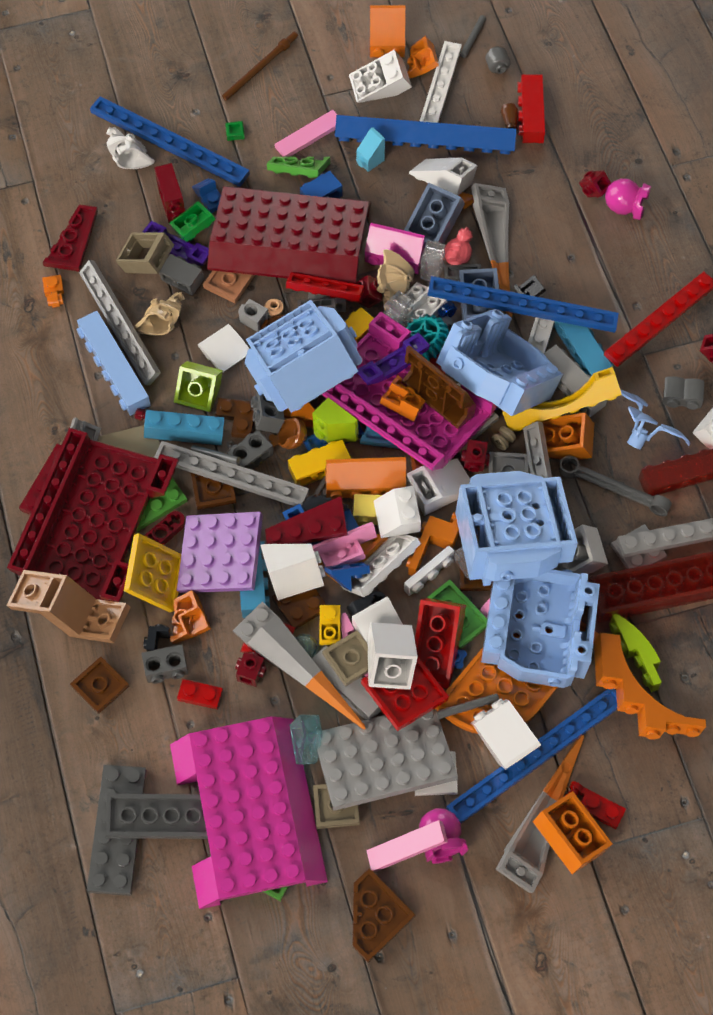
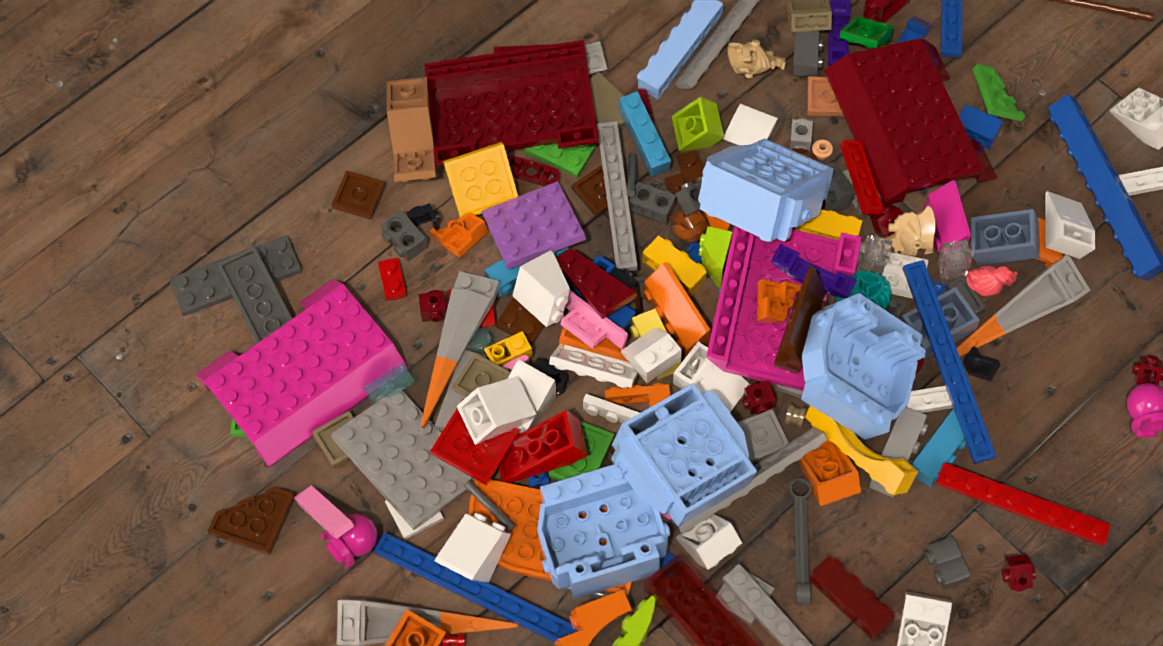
camera: 65 degrees right, 0 degrees up
(235, 131) = (1002, 21): green tile -> none
(307, 135) = (1036, 83): bright pink tile -> none
(344, 573) = (562, 332): blue slope -> none
(371, 150) = (1050, 147): medium azure slope -> none
(447, 309) = (907, 298): clear blue tile -> none
(639, 434) = (874, 519): light blue plant -> none

